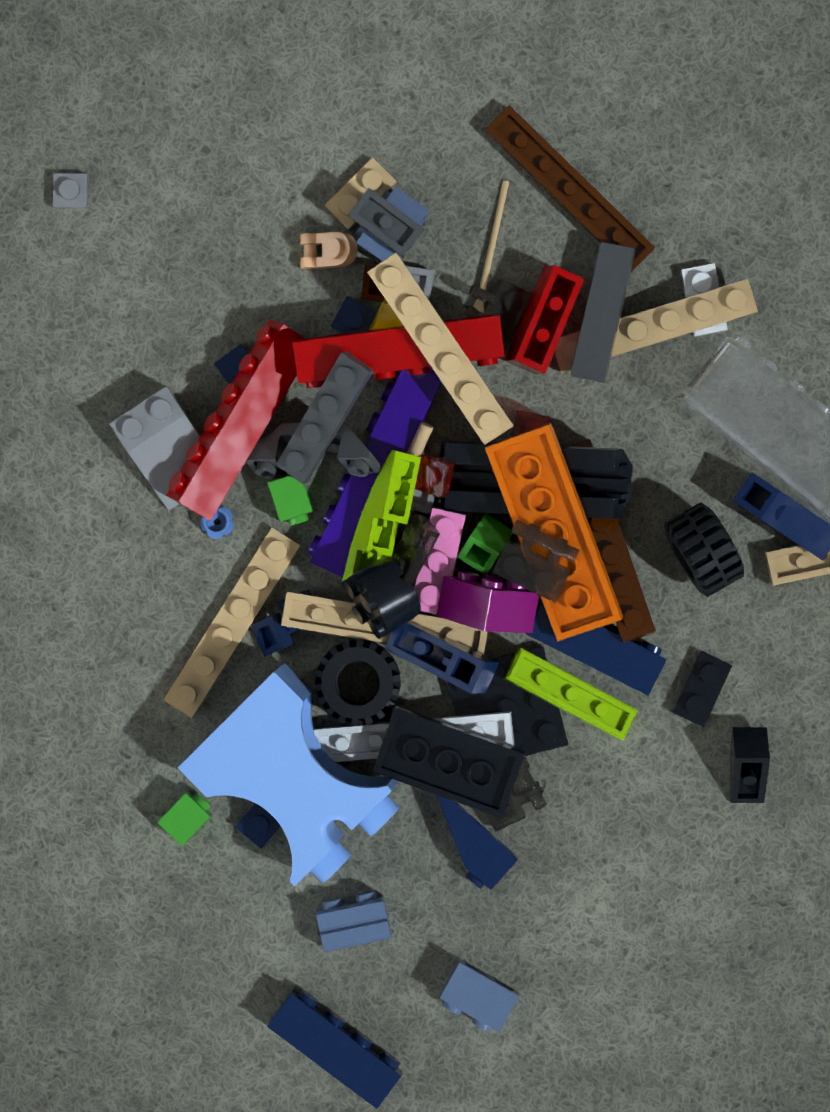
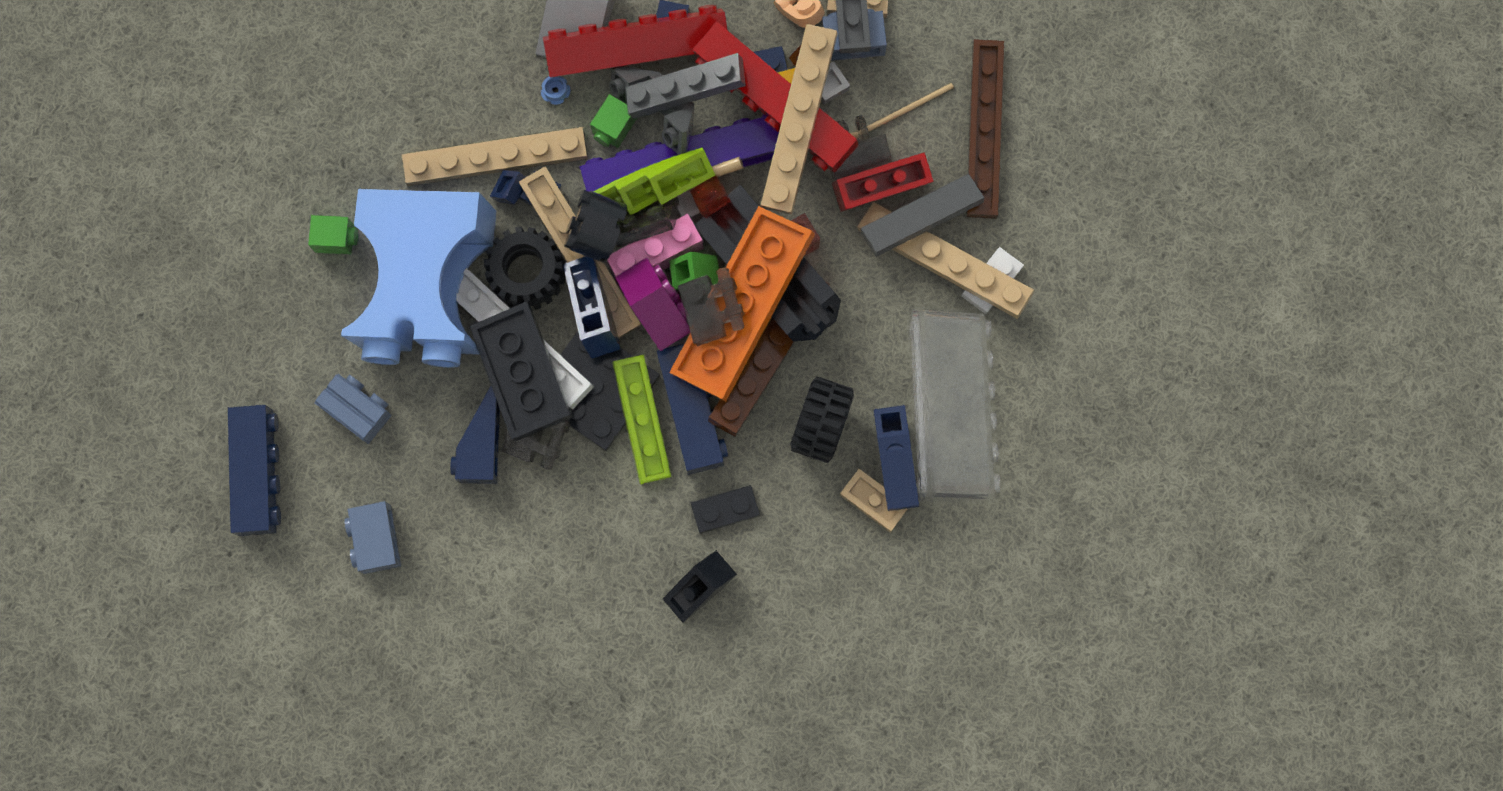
camera: 50 degrees right, 10 degrees down
(258, 825) = (364, 288): dark blue plate -> none

